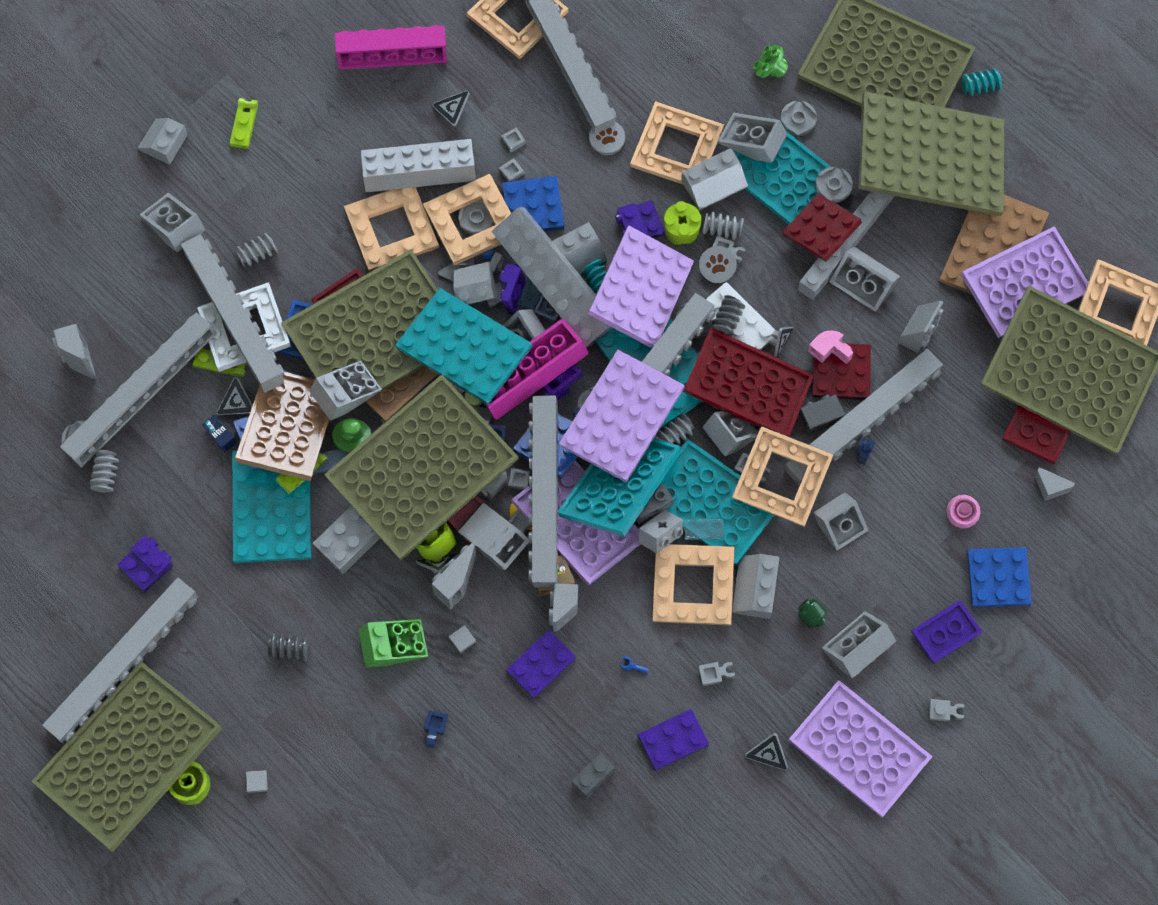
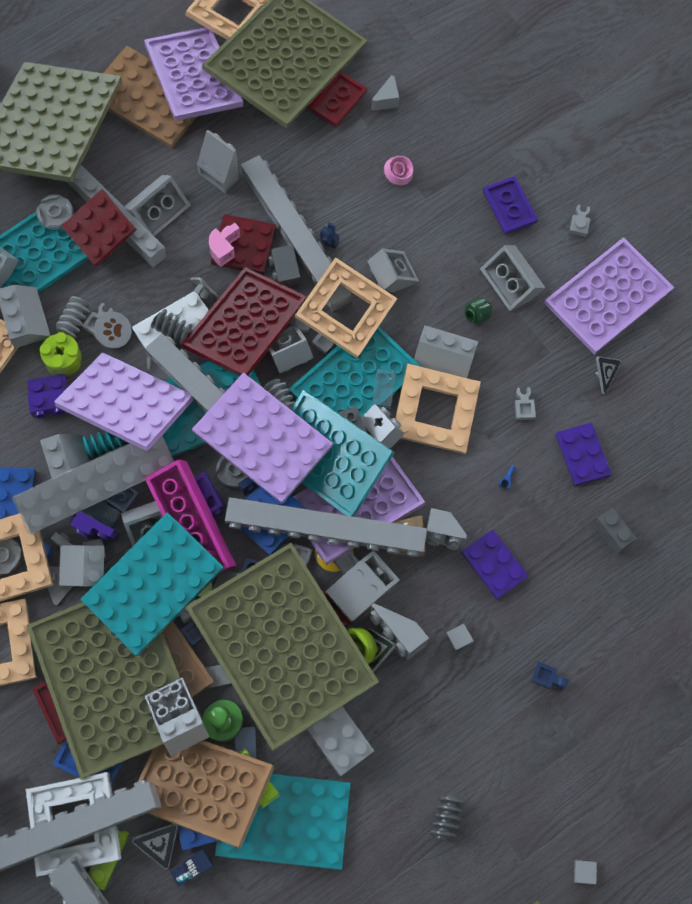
camera: 85 degrees left, 0 degrees up
(392, 642) = (455, 708): bright green slope -> none
(999, 577) = (464, 155): blue plate -> none

